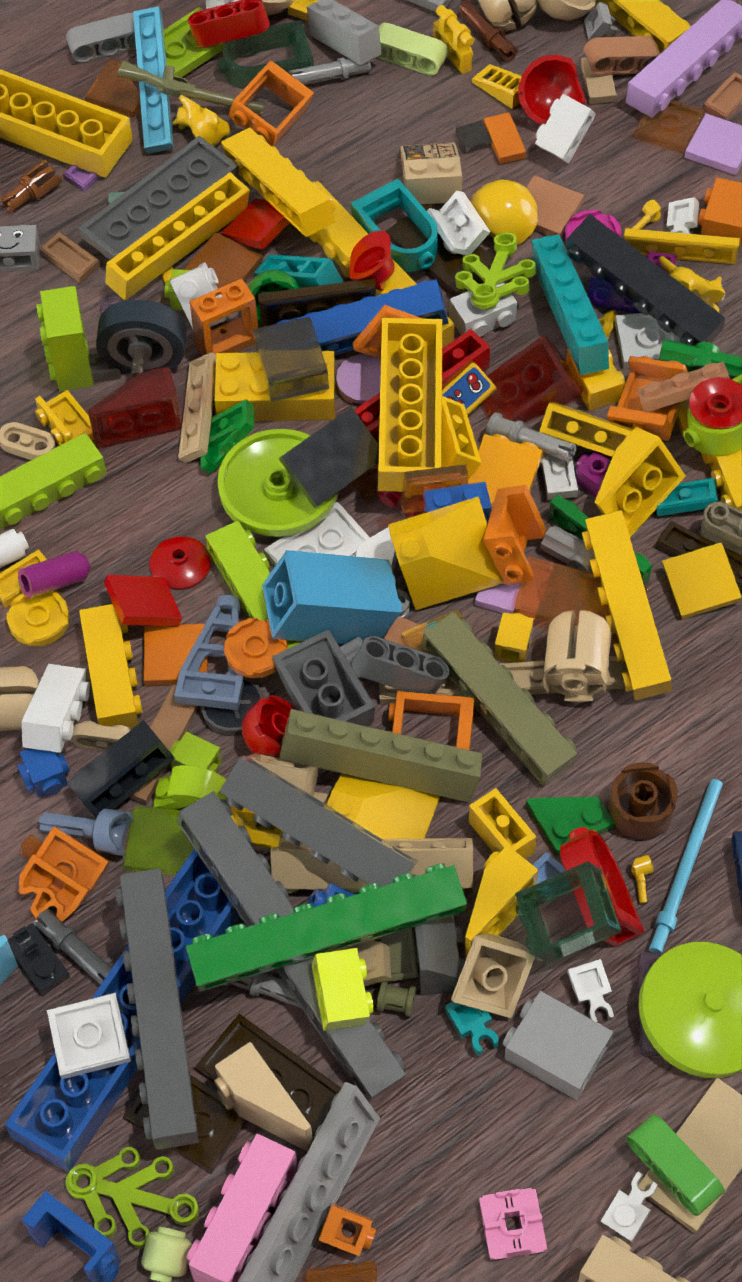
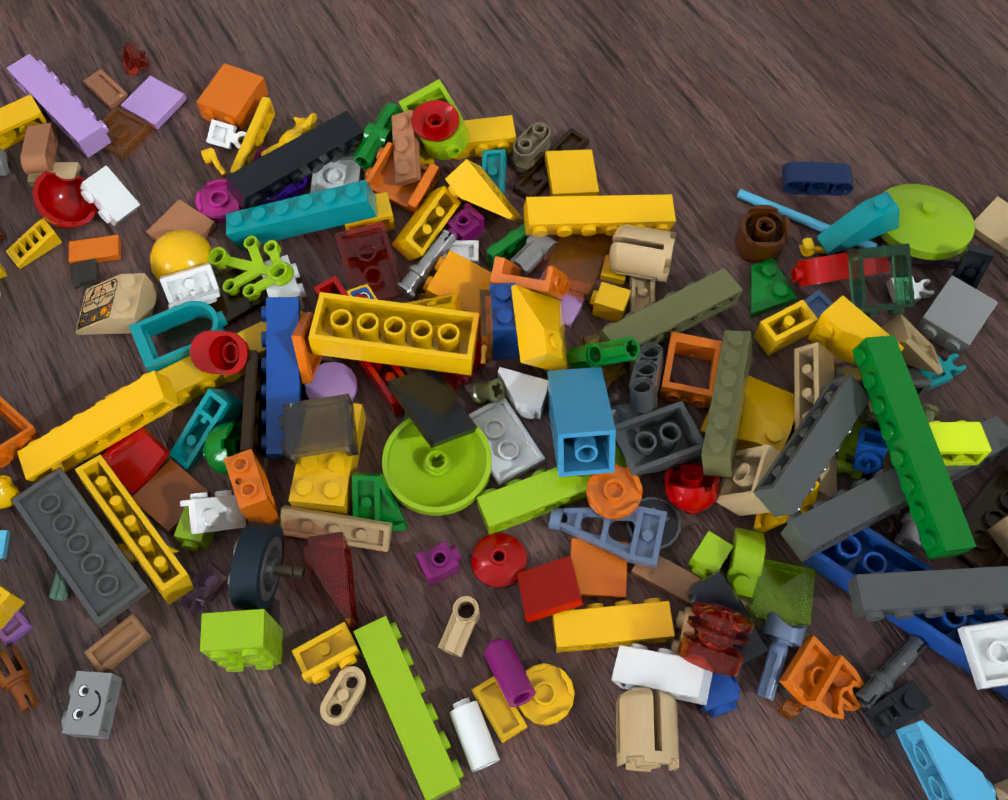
camera: 85 degrees left, 5 degrees up
(84, 735) = (713, 644): none -> clear red wheel
(102, 530) = (458, 628): none -> tan piece
(167, 502) = (434, 571): none -> magenta brick
(380, 517) = (483, 392): none -> olive bush
(419, 613) = (603, 353): none -> green piece
(628, 1055) = (973, 264): none -> black plate
(673, 916) = (862, 223): none -> teal slope

